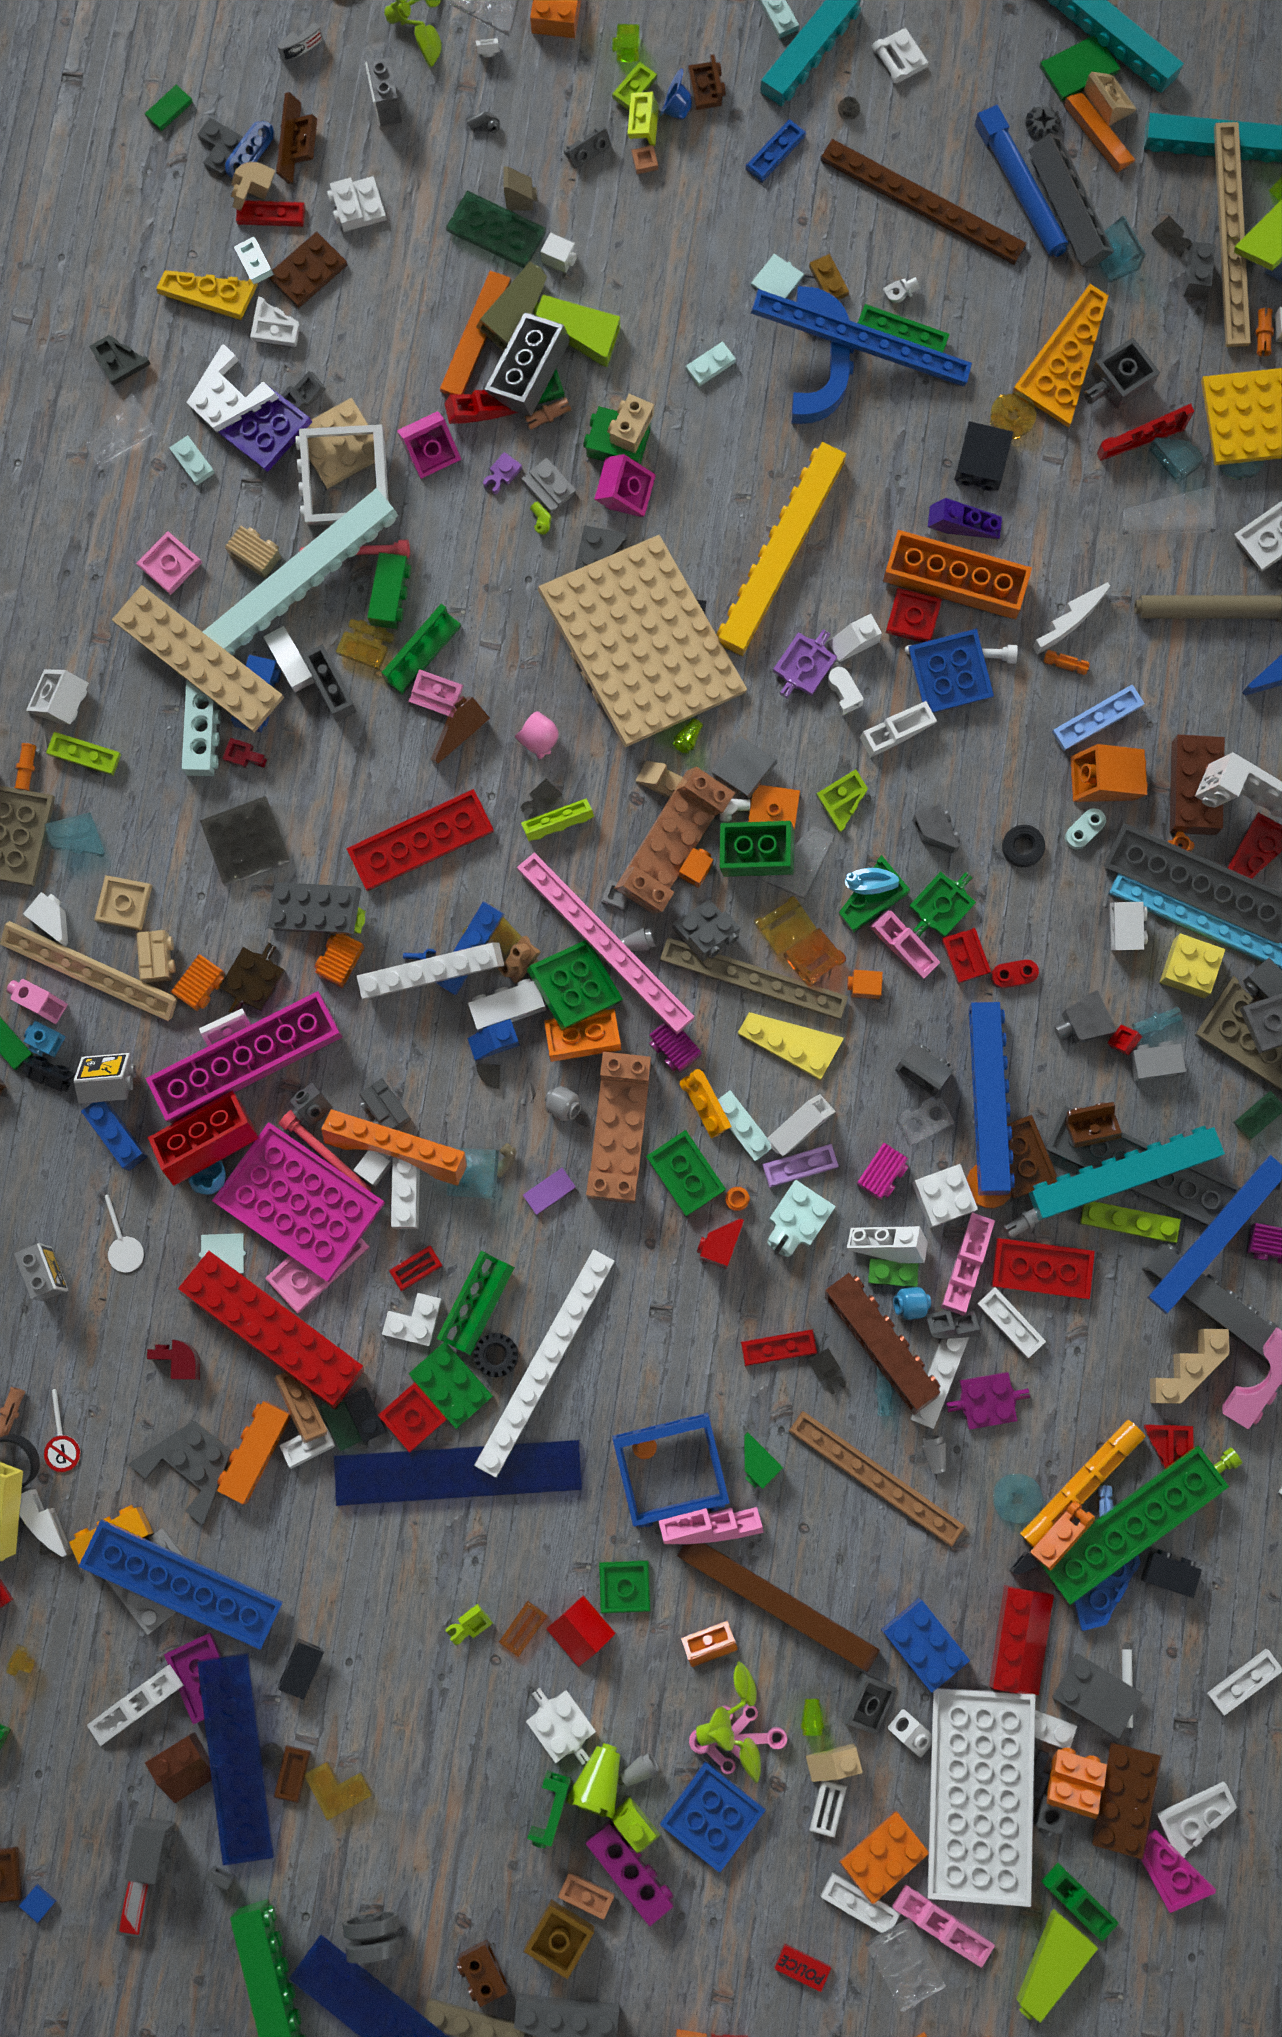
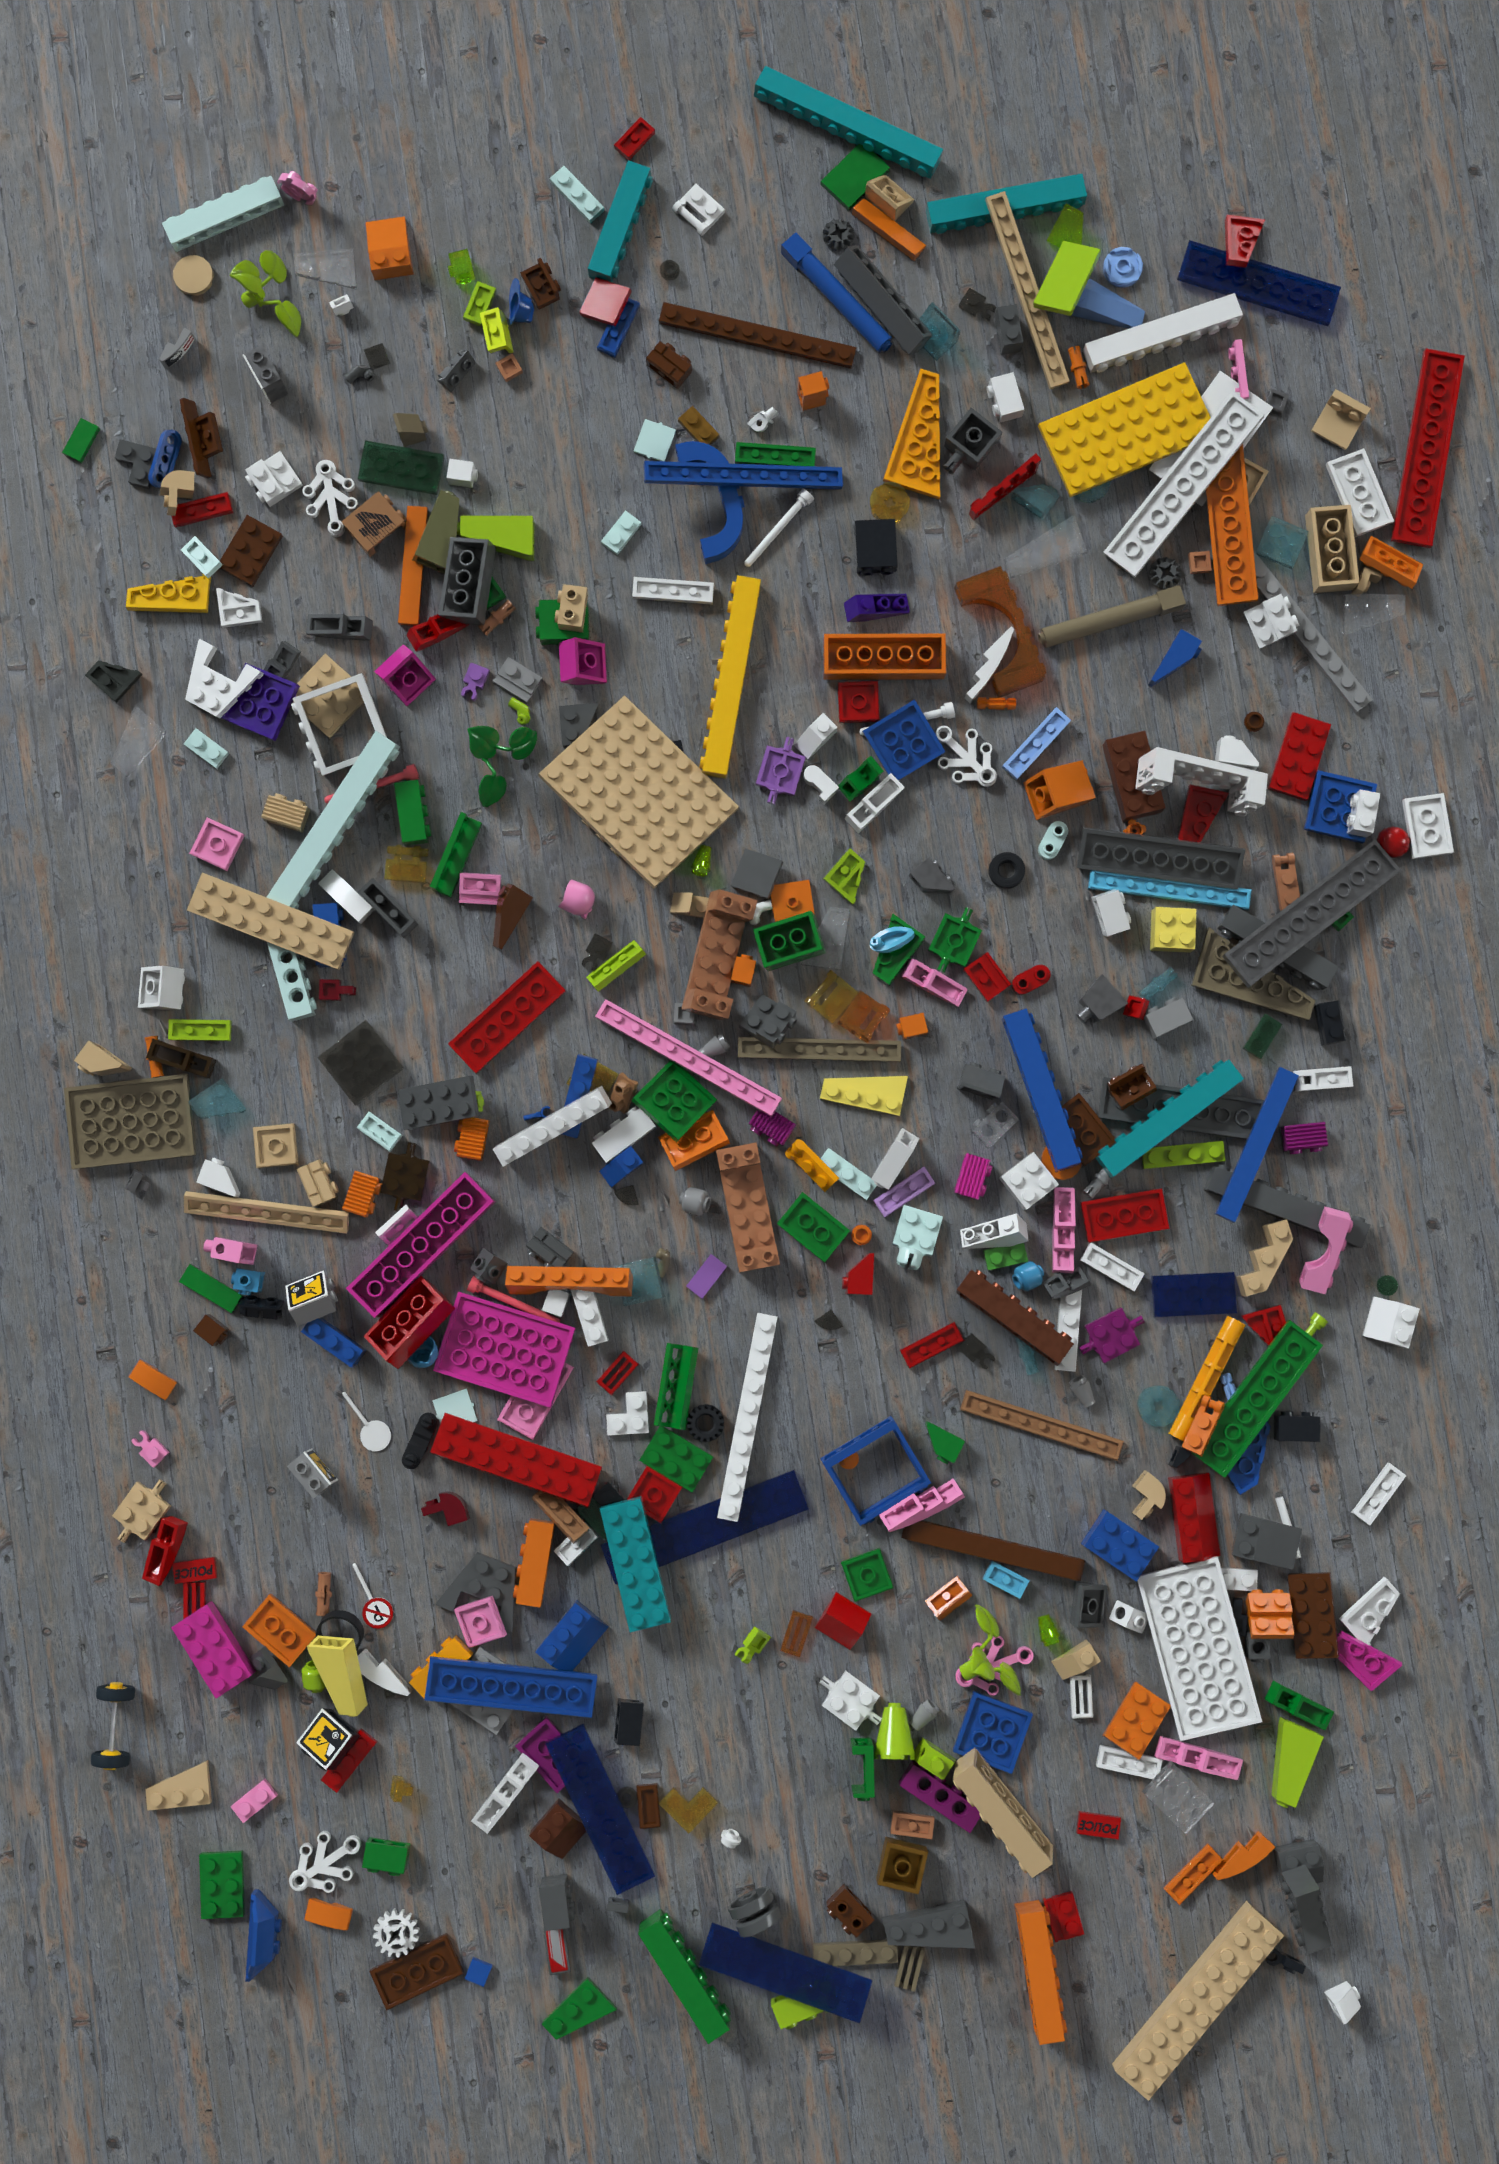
camera: 25 degrees left, 5 degrees up
(53, 777) = (181, 1058): none -> dark brown slope
(136, 1986) = (578, 2009): none -> green wing
(171, 1499) = (480, 1621): none -> bright pink plate
(172, 1274) = (419, 1440): none -> black piece
(240, 921) = (379, 1131): none -> light aqua plate
(268, 1551) = (572, 1638): none -> blue slope
(365, 1489) = (635, 1564): none -> teal brick
(373, 1842) = (730, 1838): none -> white plate
(376, 374) = (339, 626): none -> dark grey slope
(411, 236) = (330, 493): none -> white plant
(447, 276) = (373, 522): none -> medium nougat panel
(485, 533) = (483, 745): none -> green plant
(508, 109) = (376, 356): none -> clear smoke tile
(670, 1284) = (829, 1321): none -> clear smoke tile
(695, 1915) = (1003, 1813): none -> tan brick
(747, 439) = (673, 590): none -> white plate
(769, 121) = (605, 301): none -> tile
(781, 1642) = (1005, 1579): none -> medium azure plate
(817, 203) = (669, 364): none -> reddish brown brick
(890, 699) = (861, 779): none -> green brick
(920, 385) = (804, 498): none -> white piece
(965, 272) = (812, 390): none -> orange brick
(982, 1597) = (1153, 1494): none -> tan brick
(1016, 712) = (968, 758): none -> white plant
(1096, 1383) = (1194, 1294): none -> clear blue plate
(1099, 539) = (993, 590): none -> clear orange arch
(1174, 340) = (1005, 397): none -> white brick

